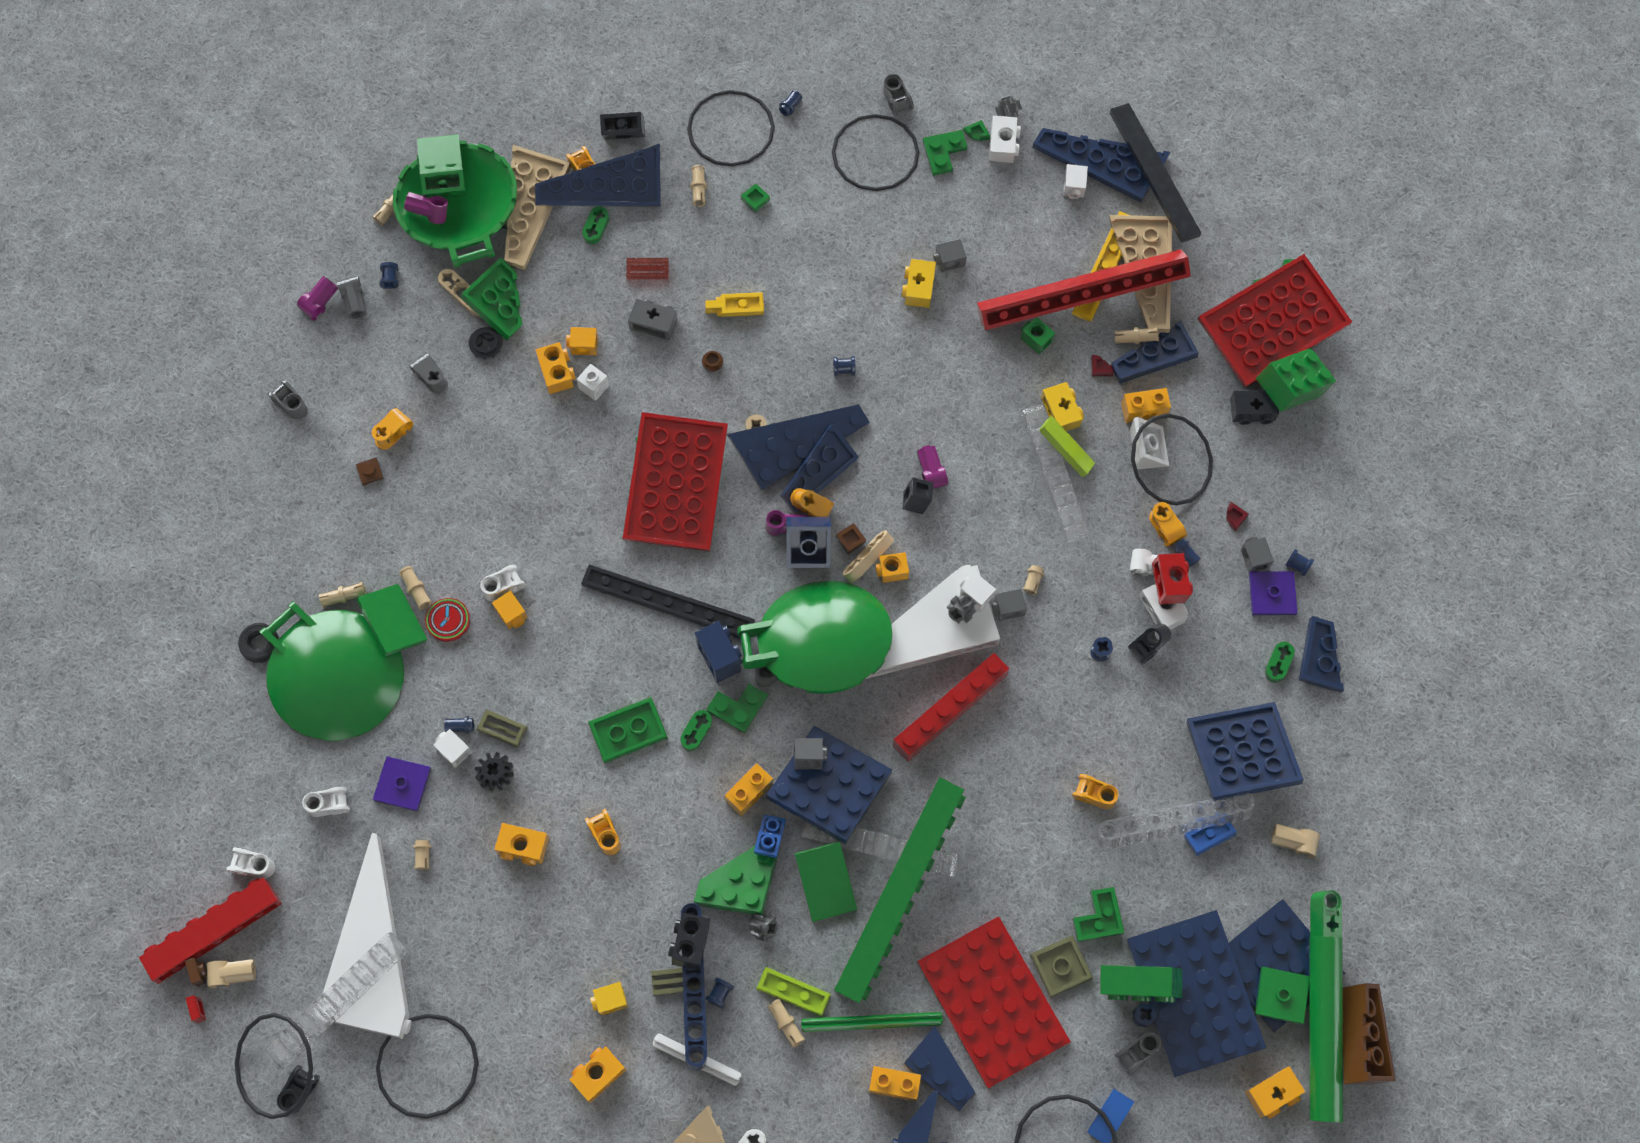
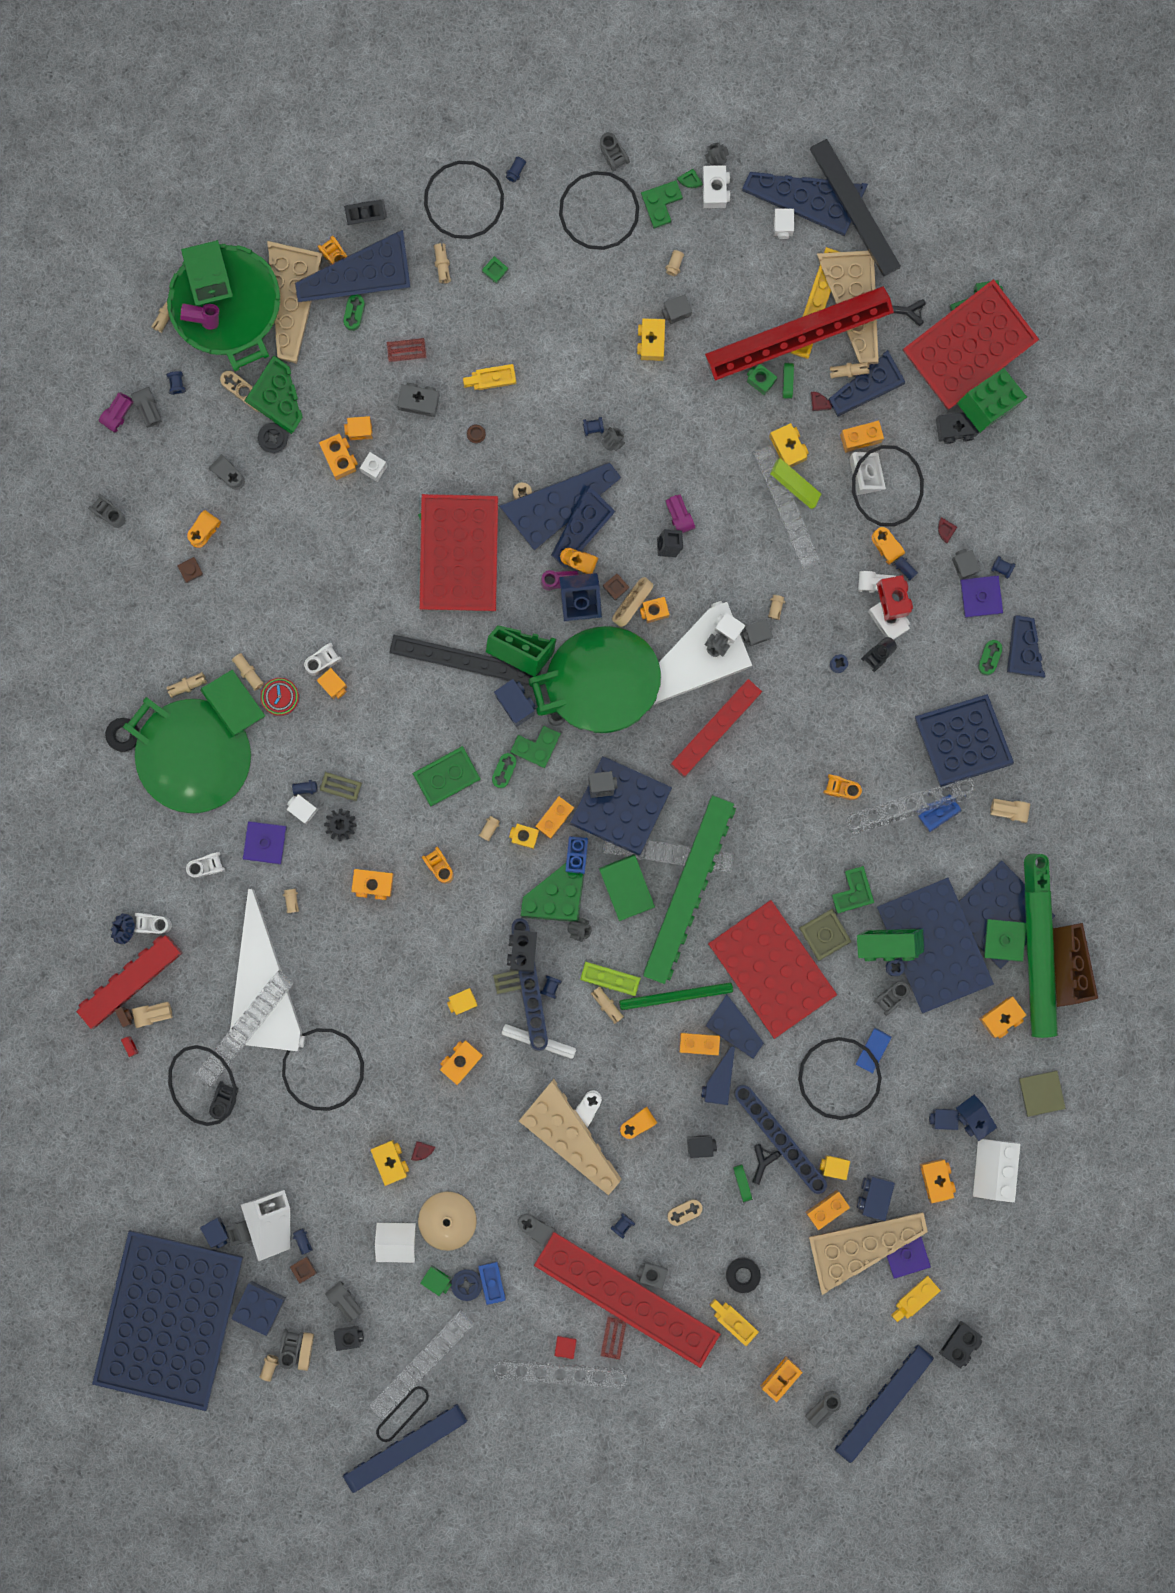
camera: 10 degrees left, 15 degrees up
(218, 858) = (128, 925): none -> dark blue gear
(670, 795) = (489, 828): none -> tan pin
(715, 816) = (533, 834): none -> yellow brick
(731, 594) = (520, 650): none -> green wedge
(864, 380) = (612, 439): none -> dark grey gear
(952, 210) = (674, 264): none -> tan pin
(1067, 340) = (788, 377): none -> green beam
(1208, 284) = (909, 311): none -> black piece

